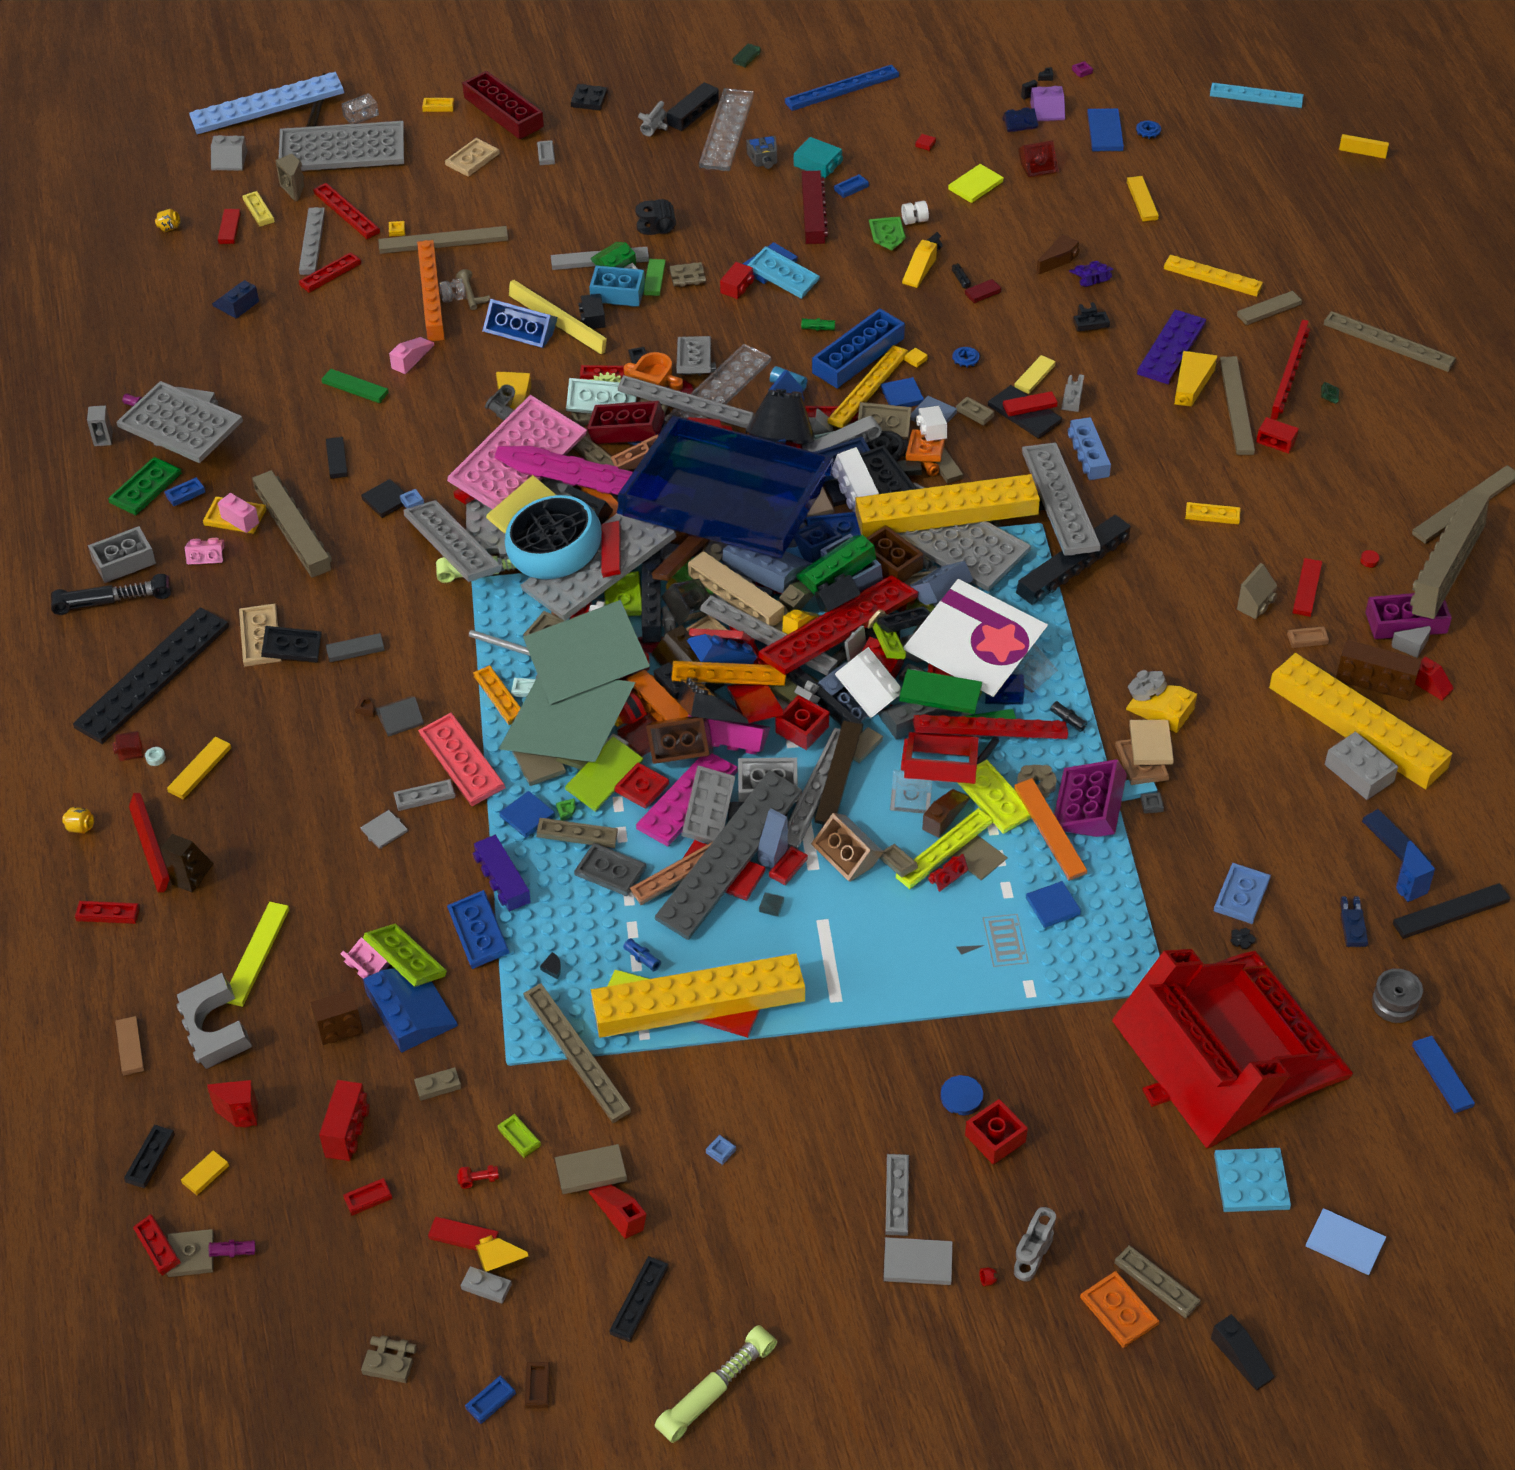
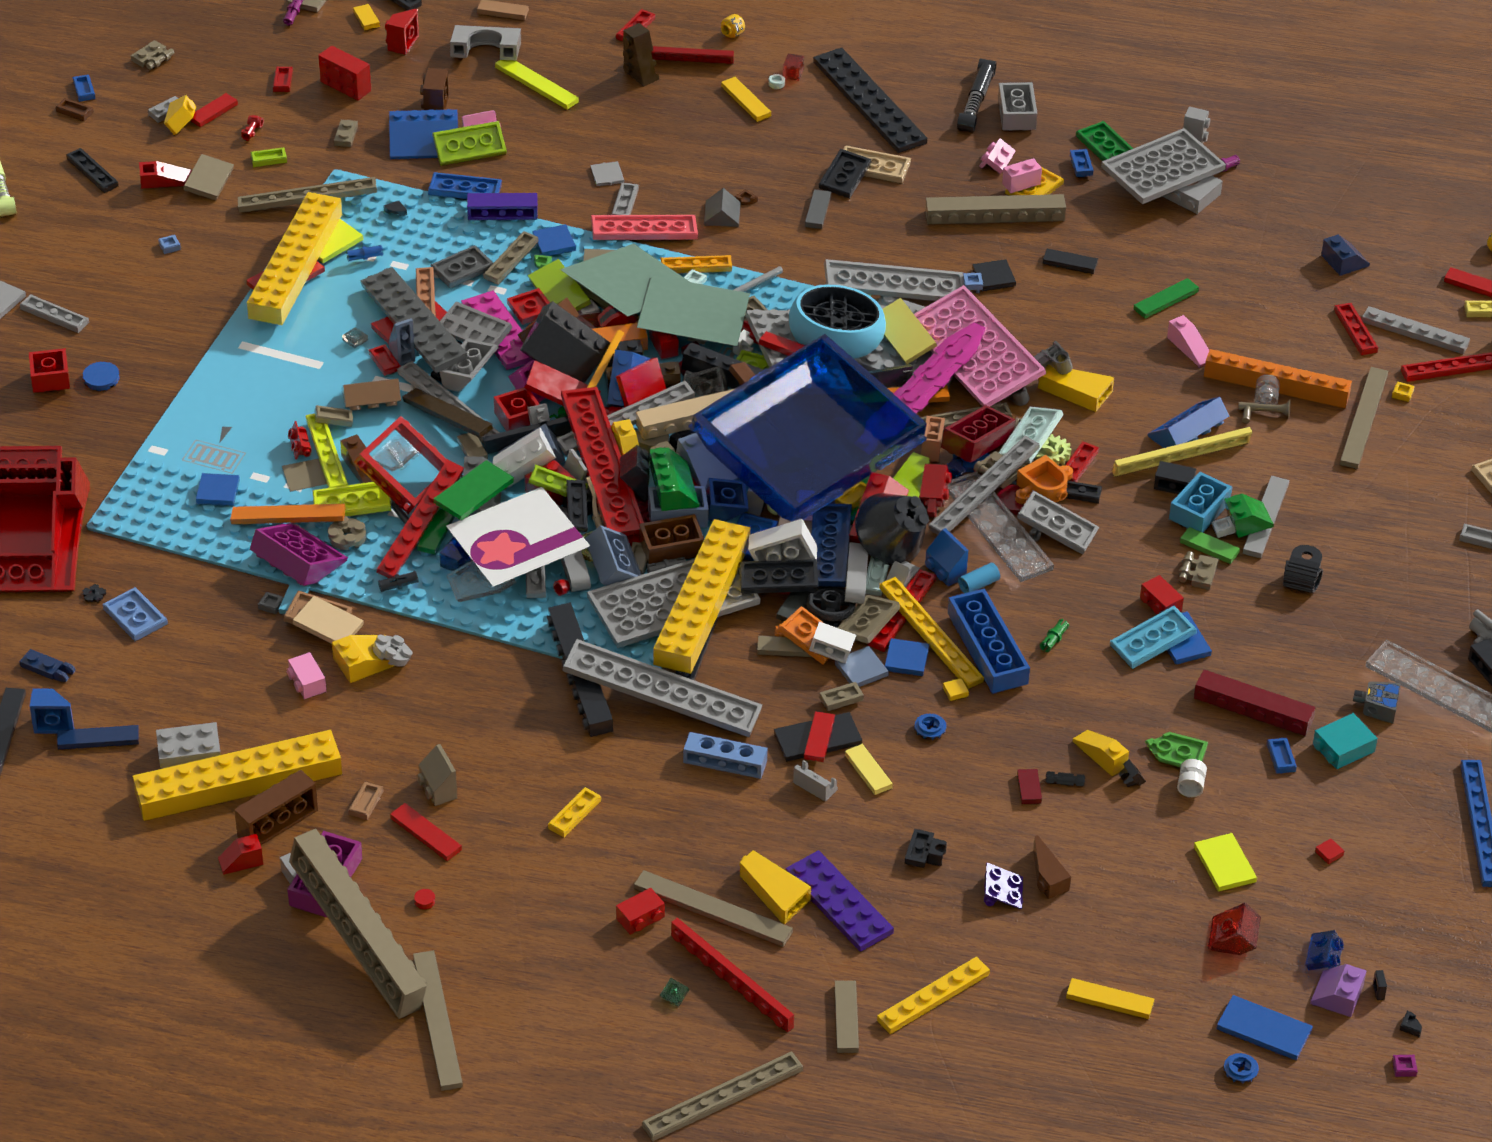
camera: 115 degrees right, 5 degrees down
(1218, 730) = (306, 675): none -> bright pink brick

